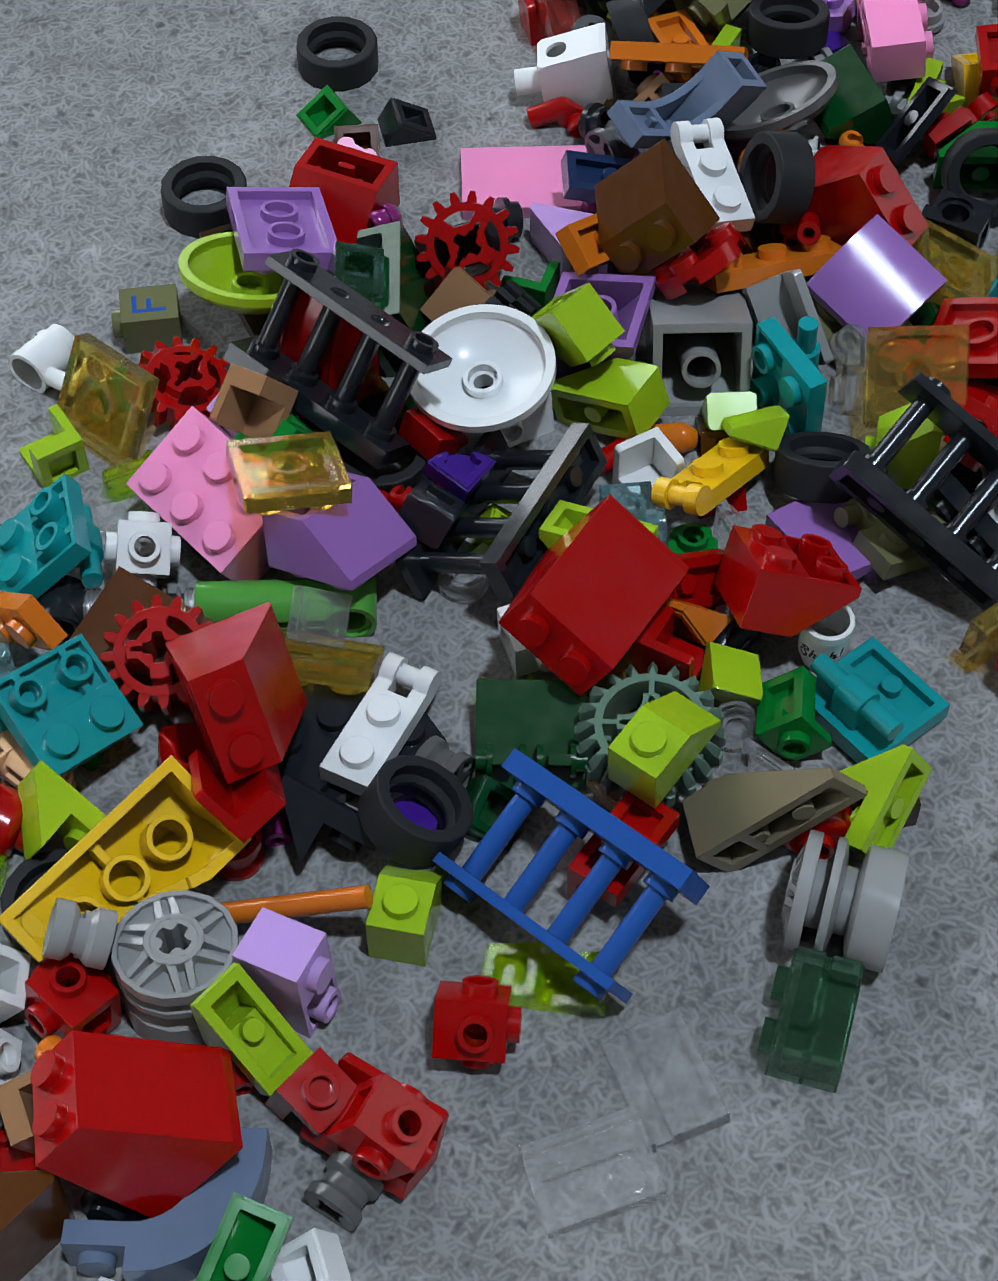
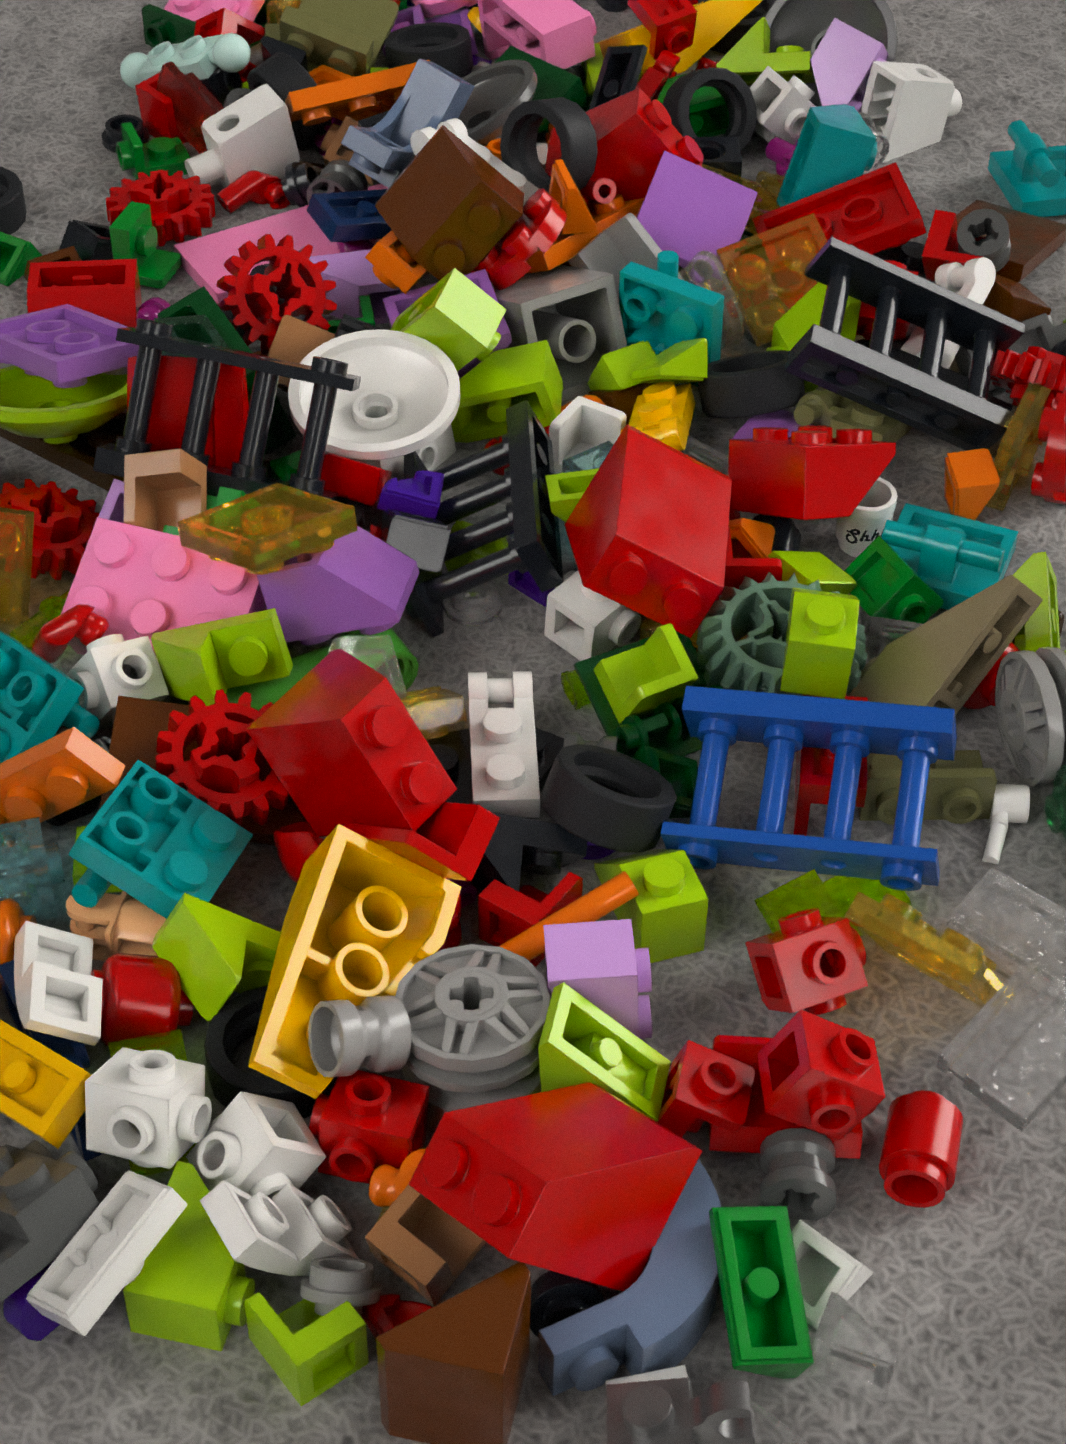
camera: 30 degrees left, 10 degrees down
(129, 492) = (58, 633): none -> red arm
(214, 563) = (222, 655): none -> lime slope
(312, 874) = (509, 912): none -> red panel
(423, 146) = (137, 239): none -> green bracket
(450, 1215) = (920, 1148): none -> red brick
(472, 107) = (176, 203): none -> red gear
(496, 22) = (114, 133): none -> black plate
(500, 53) = (156, 155): none -> green bracket
(517, 715) = (646, 674): none -> lime panel
(561, 1058) = (948, 959): none -> clear yellow plate
(715, 922) = (955, 789): none -> olive bracket
(748, 954) = (1009, 805): none -> white hand
(765, 239) = (565, 191): none -> orange slope
(939, 640) = (969, 482): none -> orange slope

